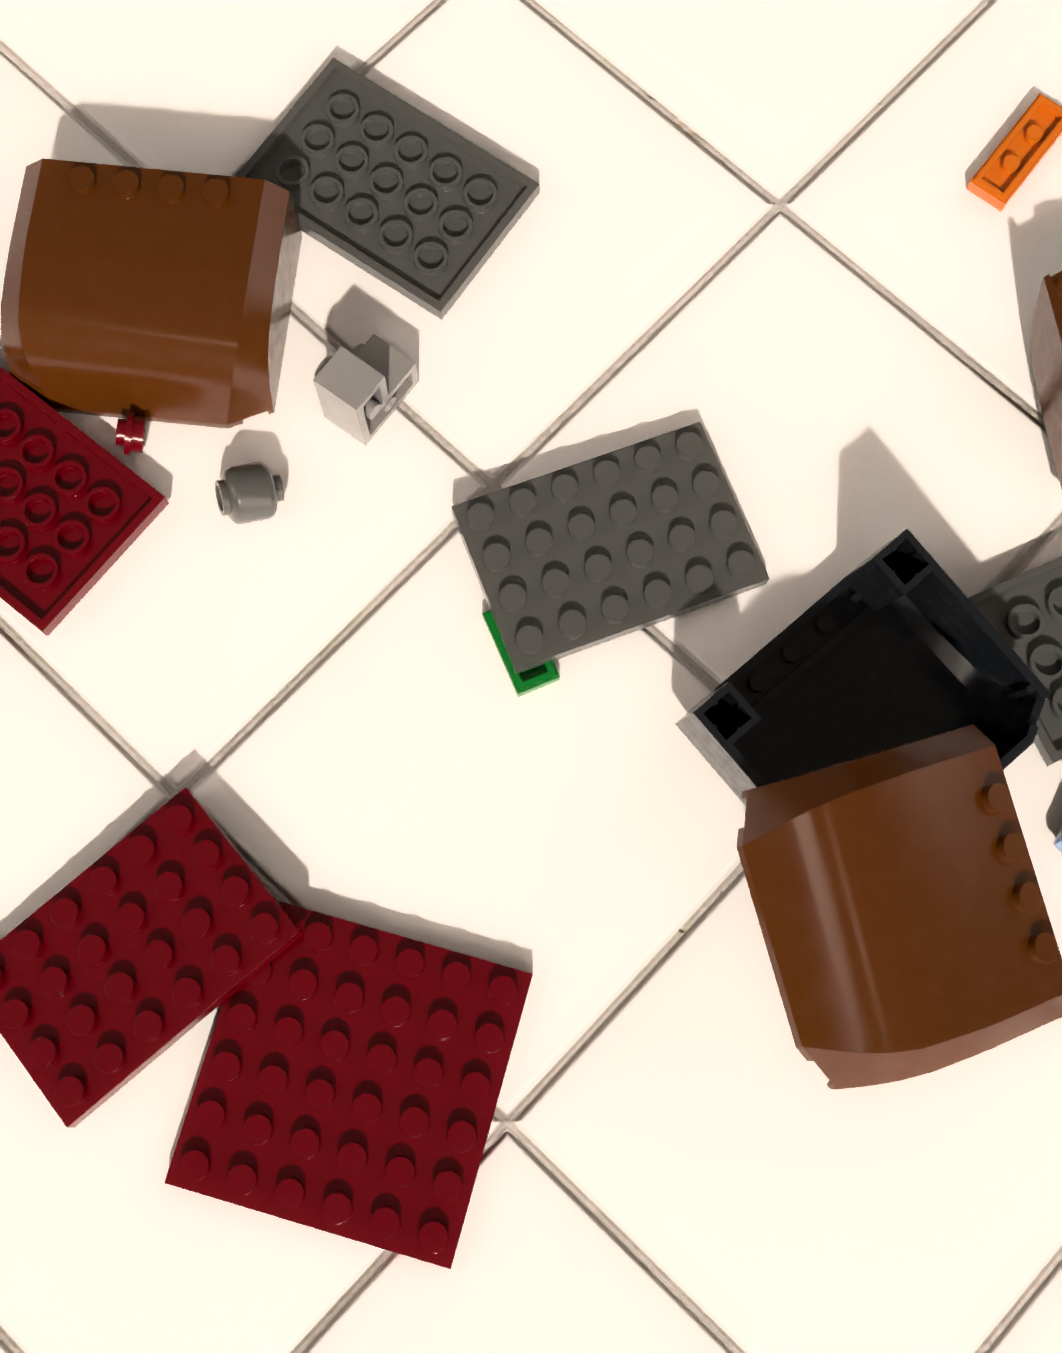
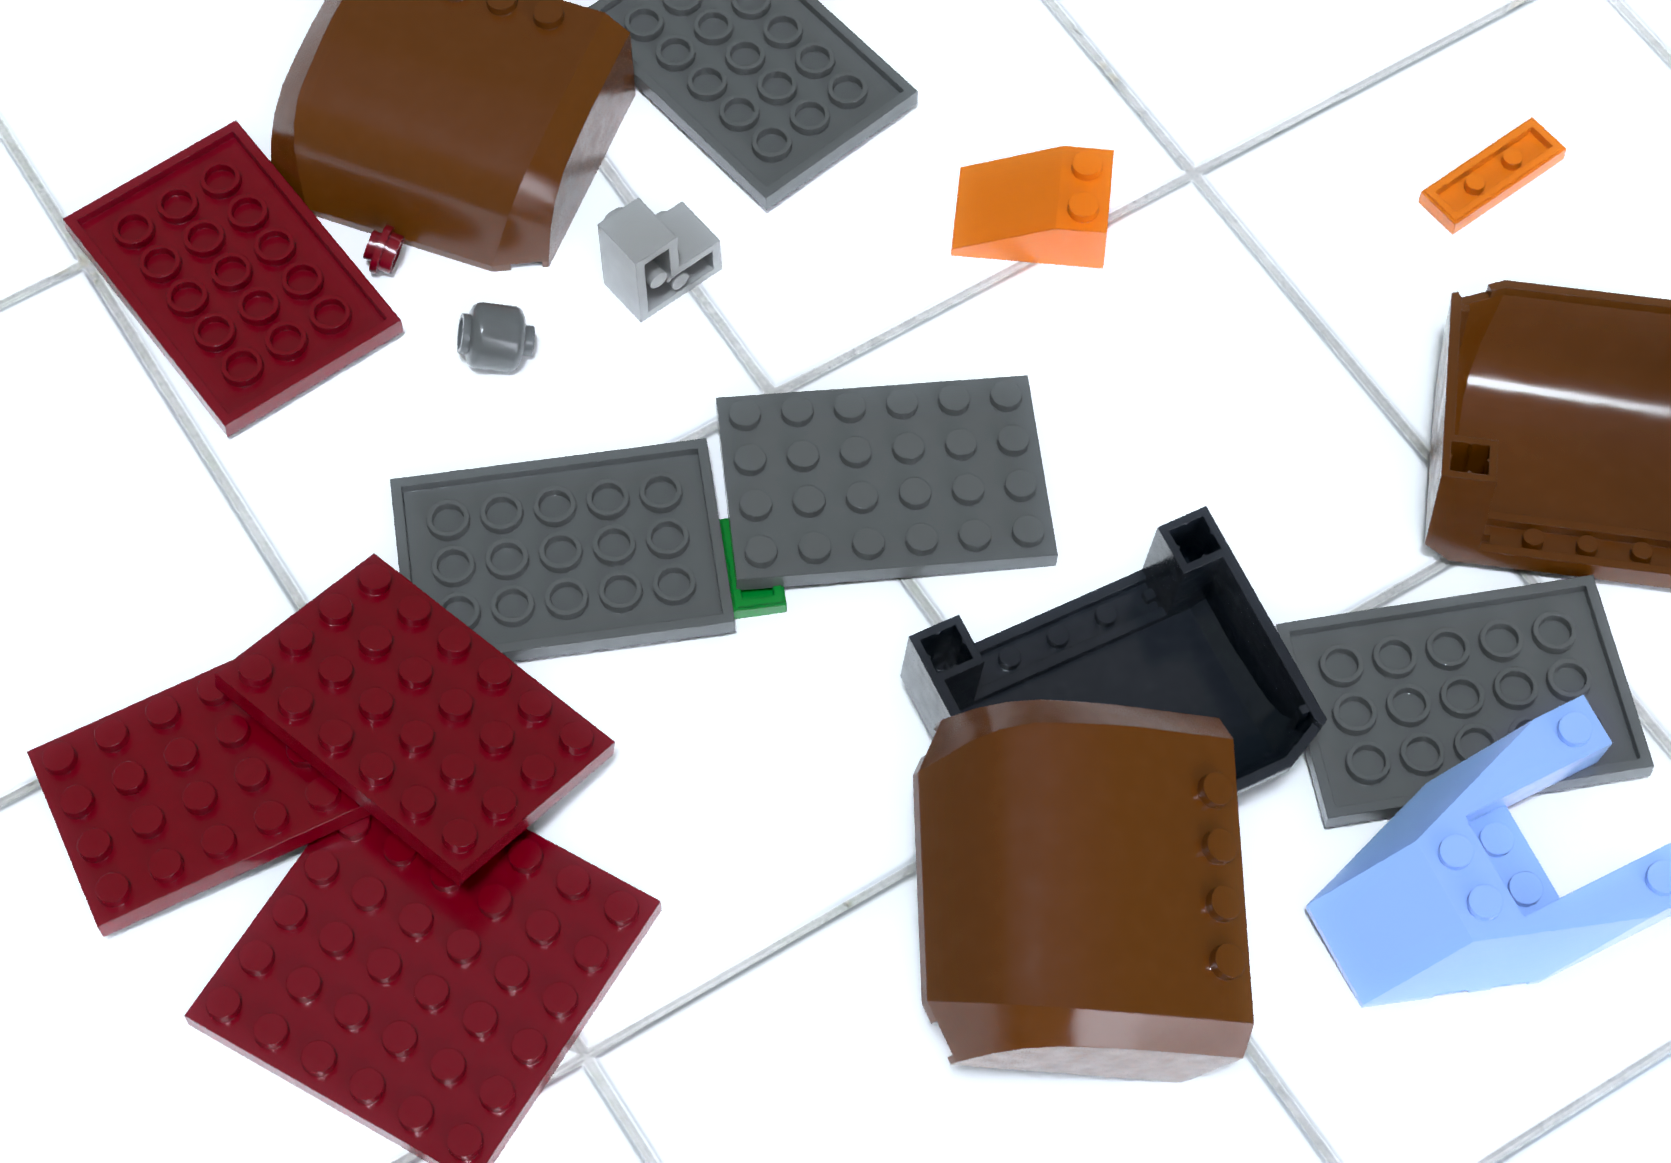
camera: 15 degrees right, 15 degrees down
(283, 872) = (415, 717): none -> dark red plate
(359, 680) = (571, 549): none -> dark grey plate
(666, 267) = (1036, 207): none -> orange slope

